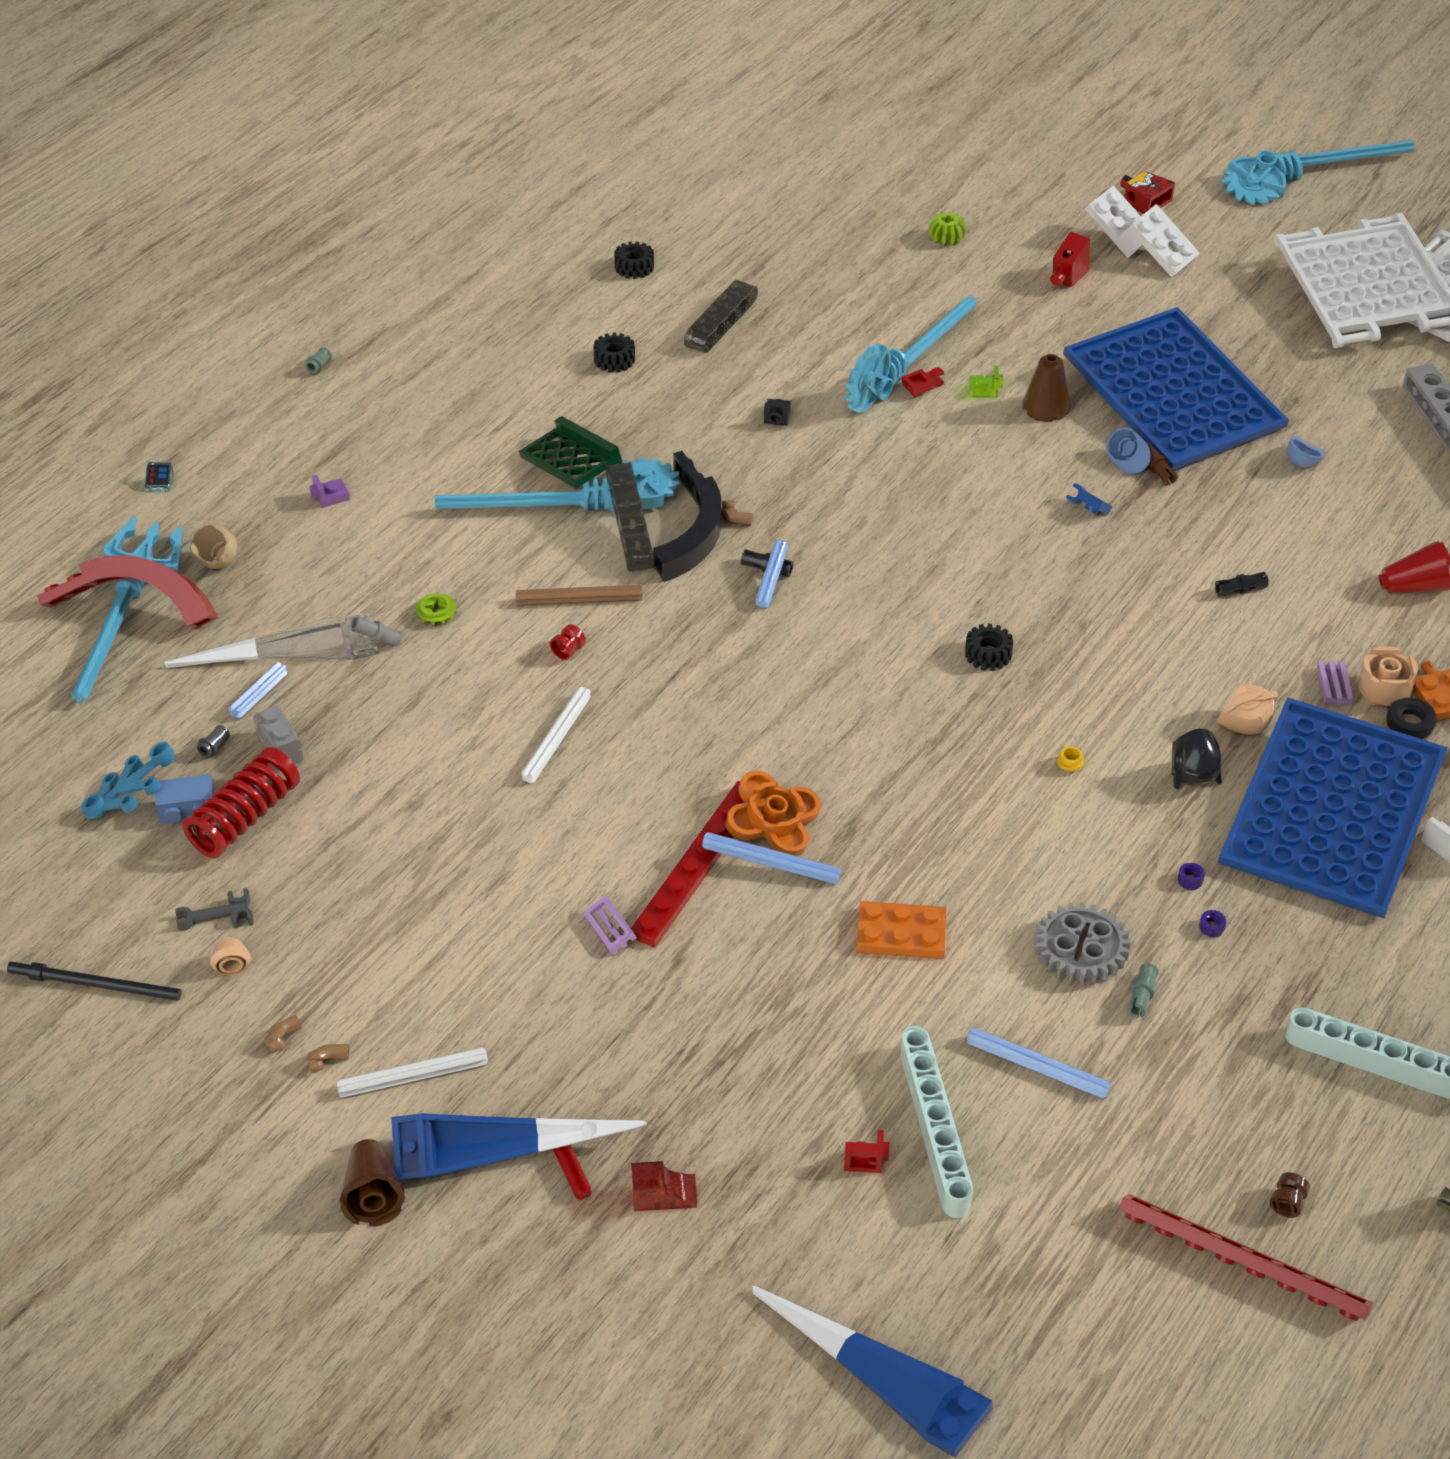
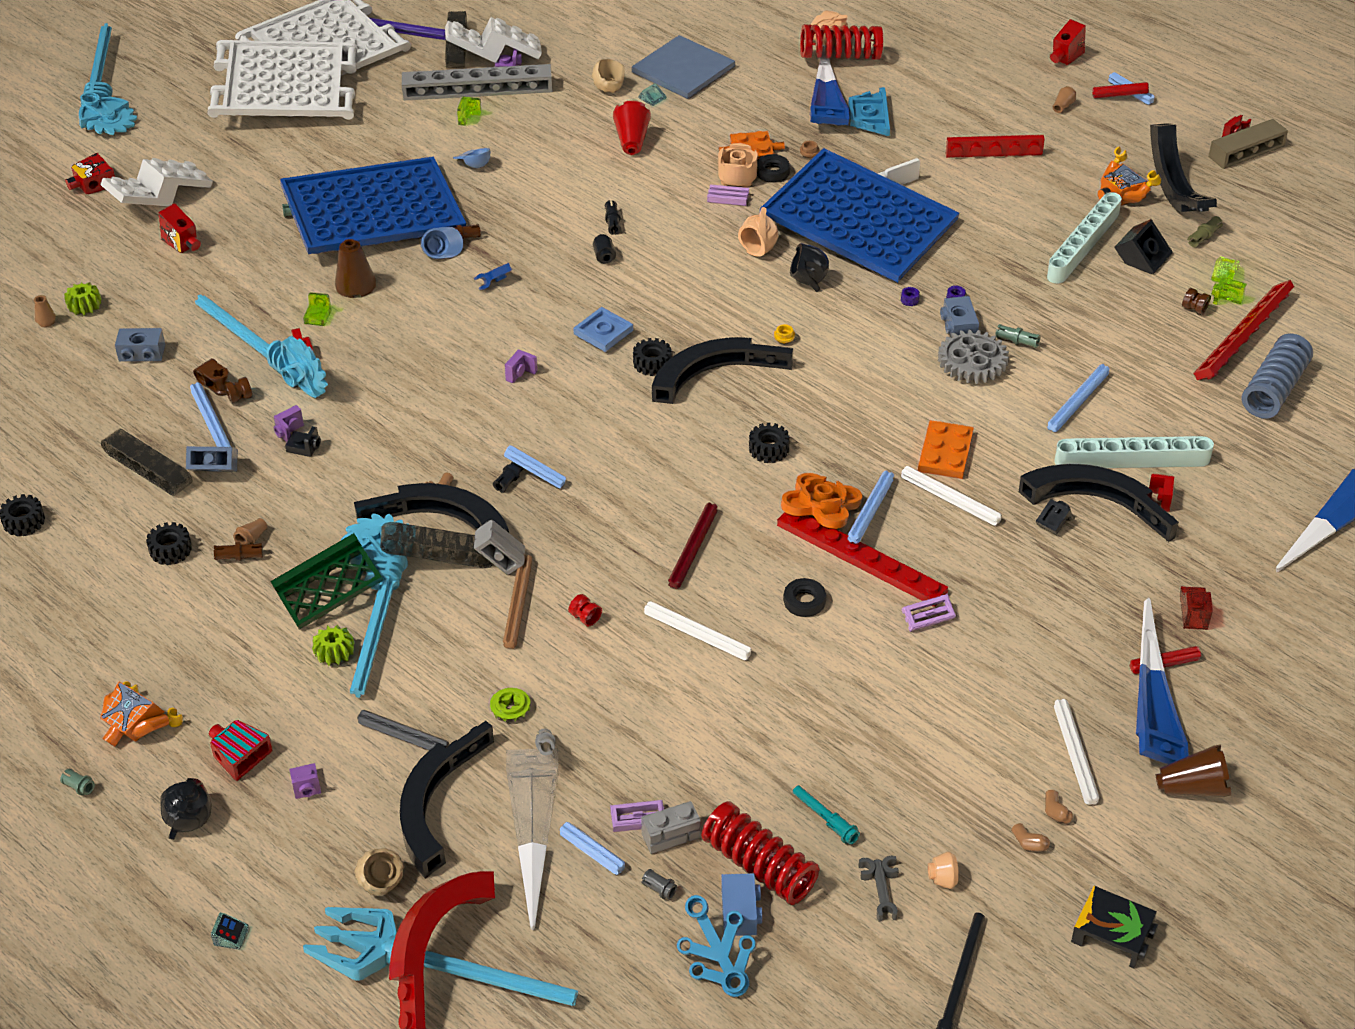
camera: 80 degrees left, 0 degrees up
(154, 1105) = (1116, 923): none -> black panel
(281, 877) = (847, 832): none -> teal pin
(285, 420) = (185, 806): none -> black helmet
(304, 561) = (420, 785): none -> black arch
(304, 733) = (632, 821): none -> lavender tile
(360, 442) = (239, 747): none -> red torso
(392, 368) = (133, 714): none -> orange torso
(393, 544) = (399, 730): none -> axle
(494, 476) = (333, 645): none -> lime gear
(612, 396) = (238, 551): none -> reddish brown pin
(624, 829) = (804, 609): none -> black tyre
(634, 558) = (499, 547): none -> light grey brick
(637, 398) = (250, 532): none -> medium nougat cone
(685, 717) = (692, 546): none -> dark red axle
(727, 351) = (211, 459): none -> sand blue brick
(796, 346) = (209, 415): none -> light blue axle
(796, 1037) = (1054, 516): none -> black bracket
(798, 392) = (287, 422): none -> medium lavender bracket
(815, 938) = (951, 495): none -> white axle
(839, 352) = (238, 390): none -> reddish brown wheel
(856, 333) = (212, 376): none -> reddish brown piece
(862, 1040) = (1102, 483): none -> black arch
(865, 772) = (769, 434): none -> black tyre
(888, 277) = (140, 344): none -> sand blue brick
(916, 209) = (43, 312): none -> medium nougat cone
(937, 540) = (518, 363): none -> medium lavender bracket
(993, 683) = (711, 355): none -> black arch
(1025, 601) = (603, 329): none -> medium blue plate
(1073, 1283) = (1277, 375): none -> sand blue piece
(1156, 925) = (959, 315): none -> sand blue brick
(1172, 581) = (604, 249): none -> black brick
(1328, 1229) = (1229, 290): none -> clear neon green bracket
(1386, 1233) = (1224, 267): none -> clear neon green bracket
(1391, 1131) = (1144, 247): none -> black slope
(1395, 431) = (467, 107): none -> clear neon green bracket

